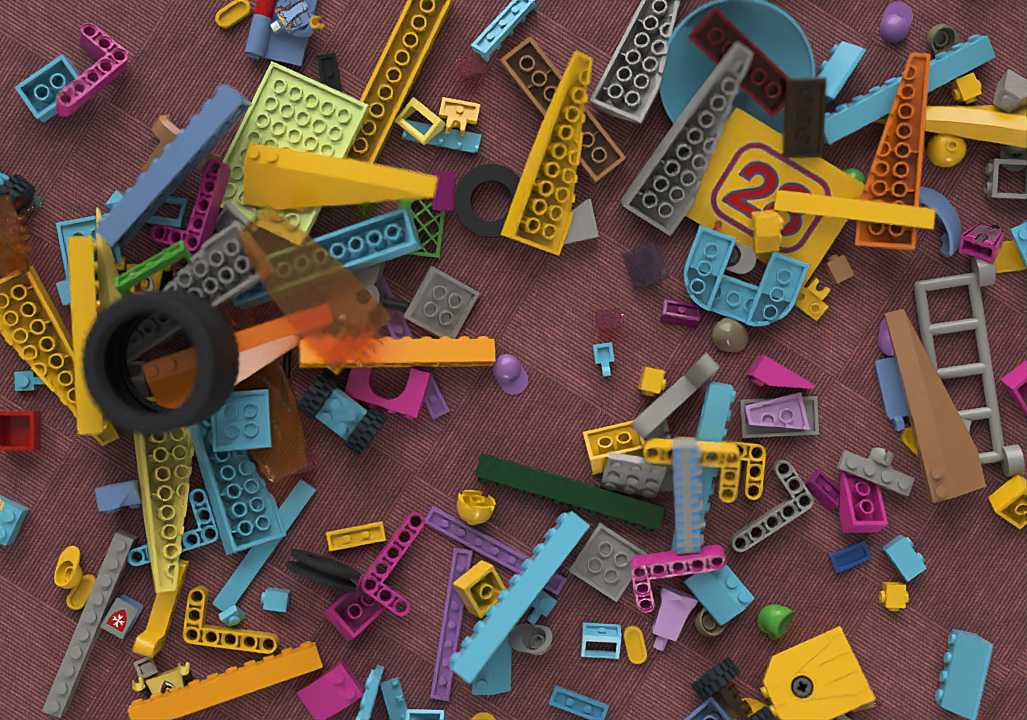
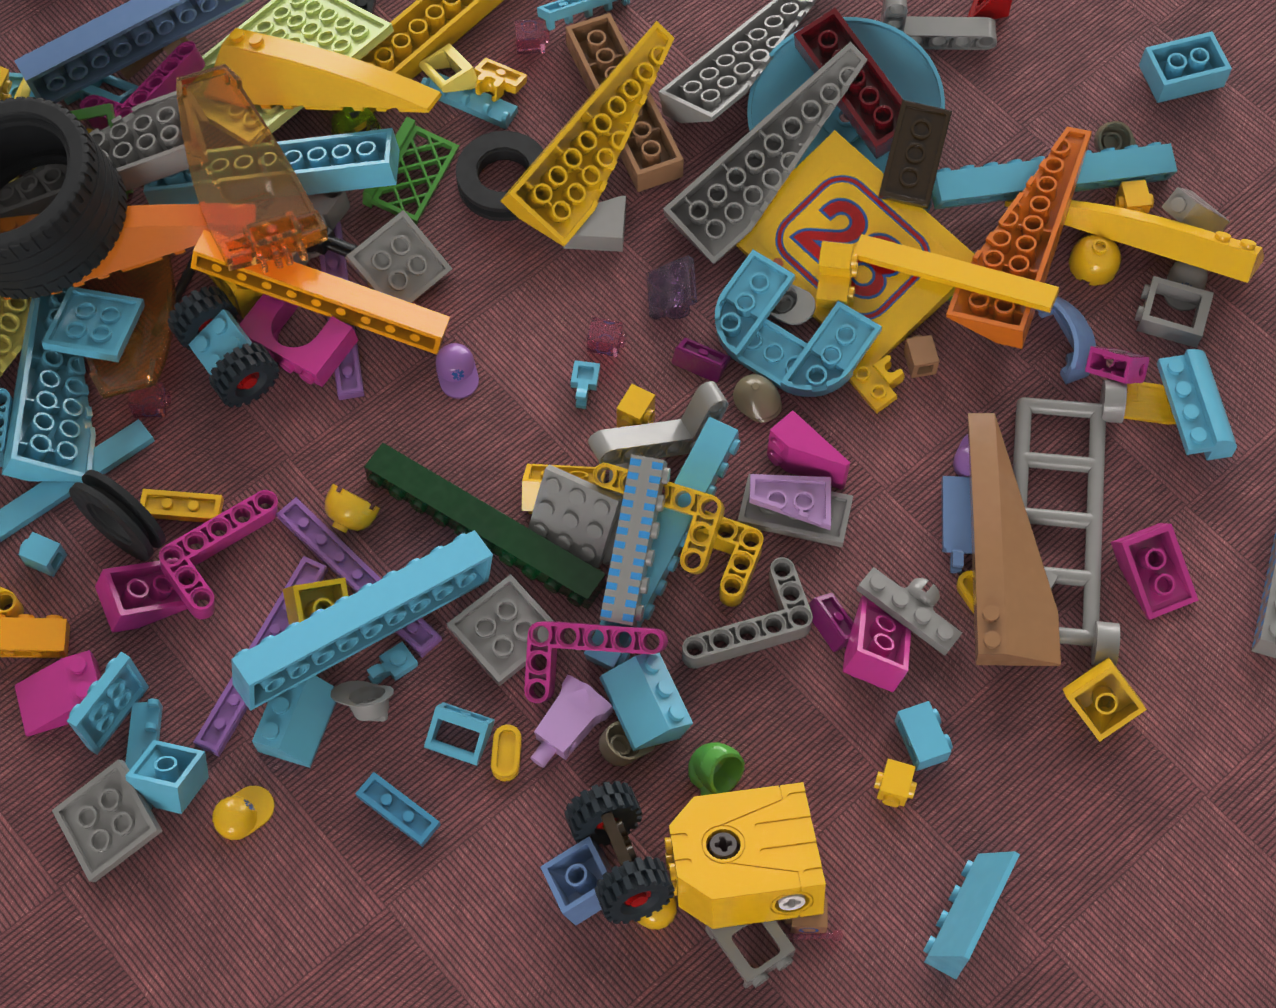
camera: 10 degrees right, 25 degrees down
(445, 191) = (447, 146): magenta slope -> none
(839, 67) = (976, 139): medium azure slope -> none
(850, 556) = (846, 717): blue tile -> none
(896, 22) = (1060, 114): medium lavender cap -> none

